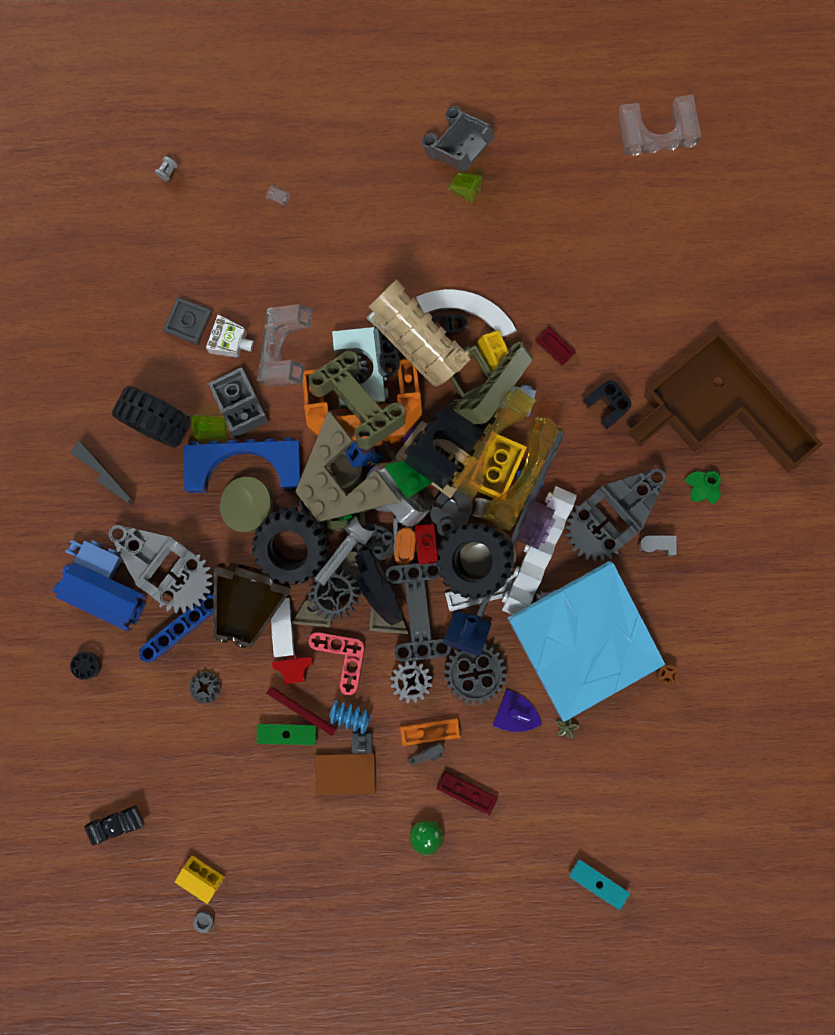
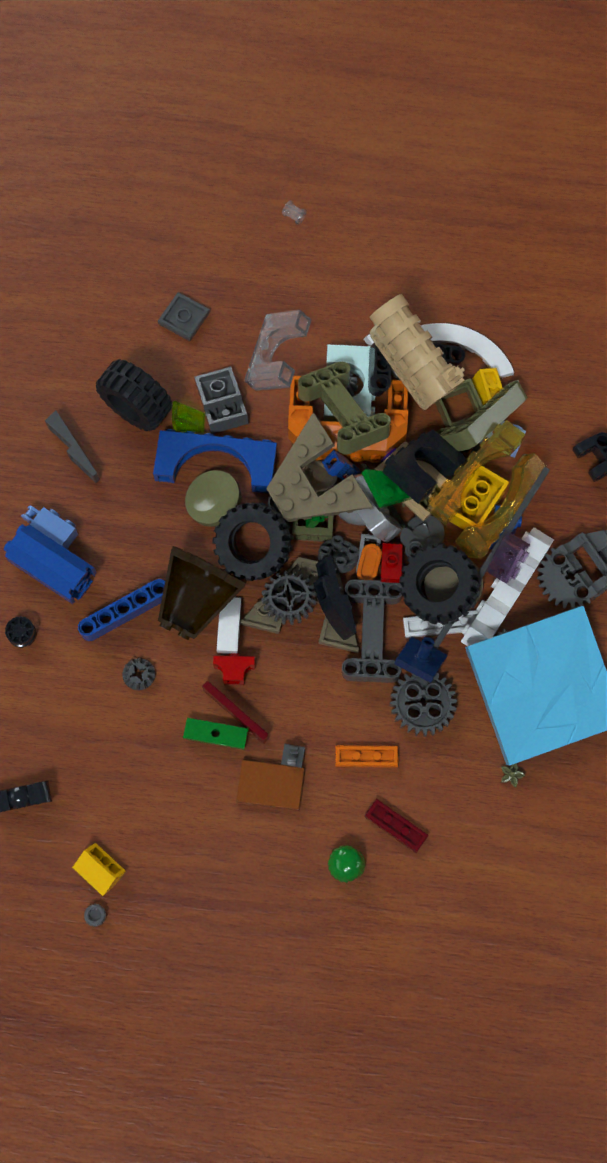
camera: 10 degrees right, 10 degrees down
(149, 557) = (109, 530): light grey connector -> none
(167, 162) = (188, 173): light grey bush -> none
(228, 338) = (221, 338): white torso -> none
(349, 656) = (294, 665): coral beam -> none
(350, 717) = (285, 726): dark azure piece -> none
(356, 534) = (321, 540): light grey piece -> none
(418, 670) = (360, 706): light grey gear -> none
(432, 753) = (364, 773): dark grey wing -> none
(461, 142) = (484, 186): dark grey piece -> none
(466, 185) = (483, 230): clear neon green slope -> none
(480, 508) = (454, 533): light grey bush -> none
(516, 714) = (460, 753): dark purple shield -> none
(555, 346) = (551, 394): dark red tile -> none
(607, 891) = (535, 952): teal tile -> none

